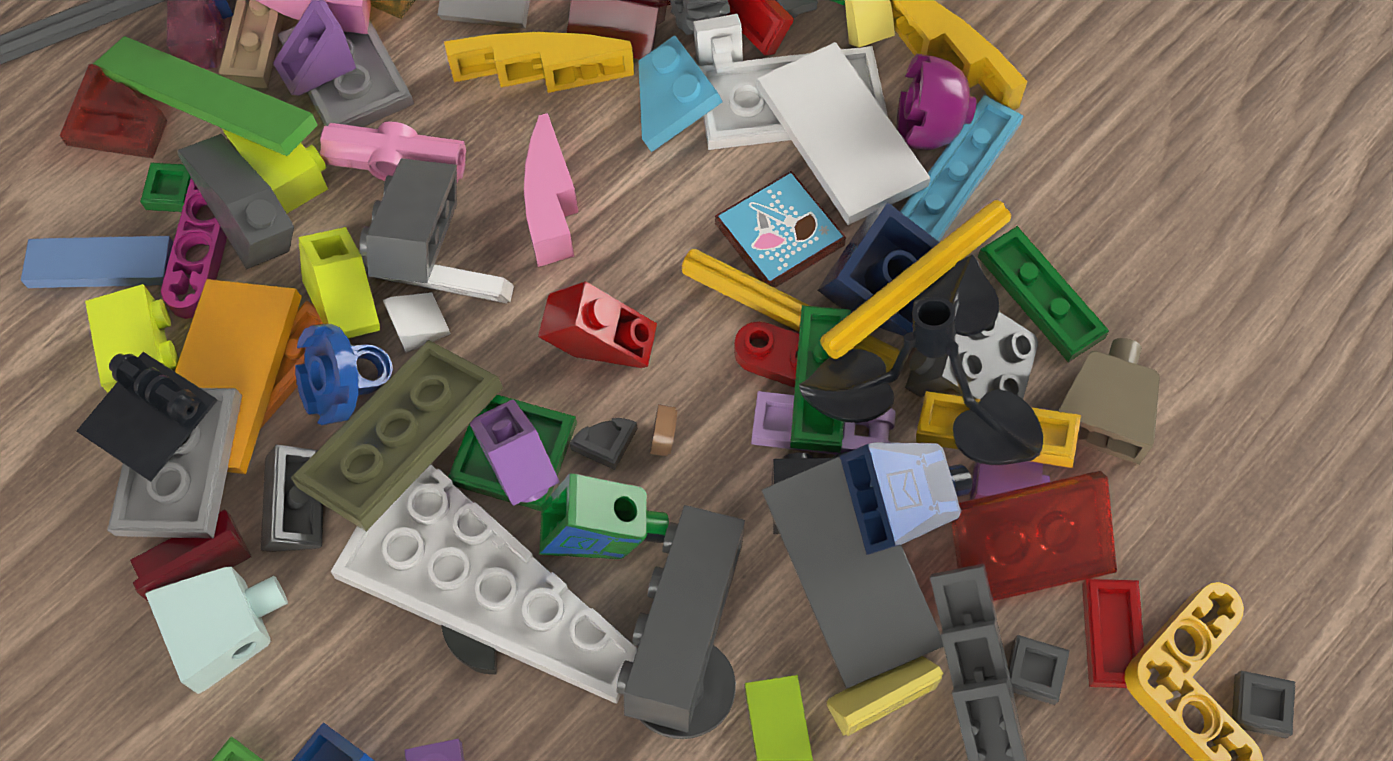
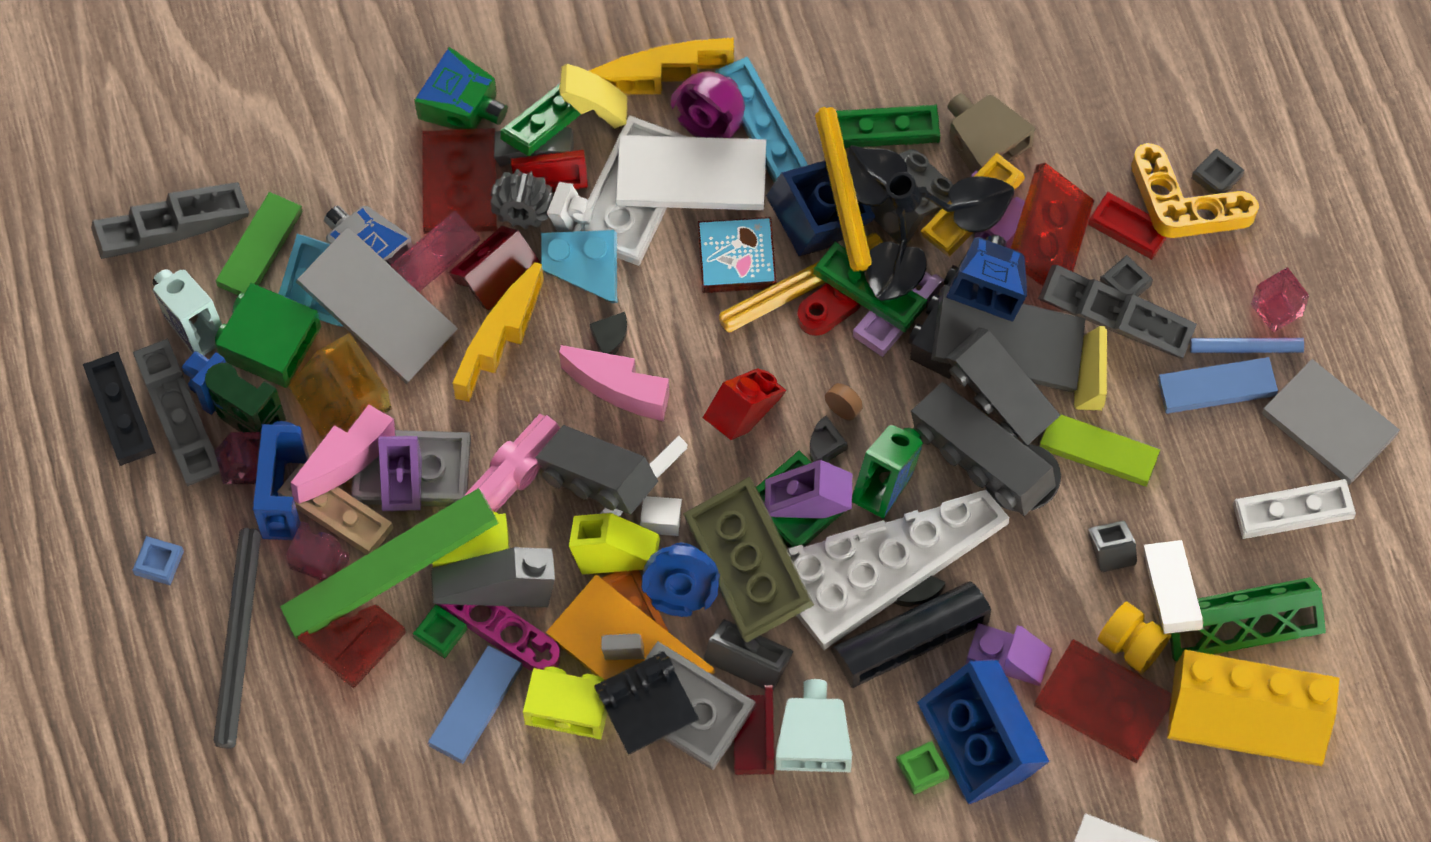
camera: 60 degrees left, 0 degrees up
(207, 356) = (622, 646): none -> light grey tile
(406, 665) = (912, 634): none -> black brick
(605, 161) = (610, 333): none -> pearl dark grey tile
(773, 591) = (1001, 386): none -> dark grey brick

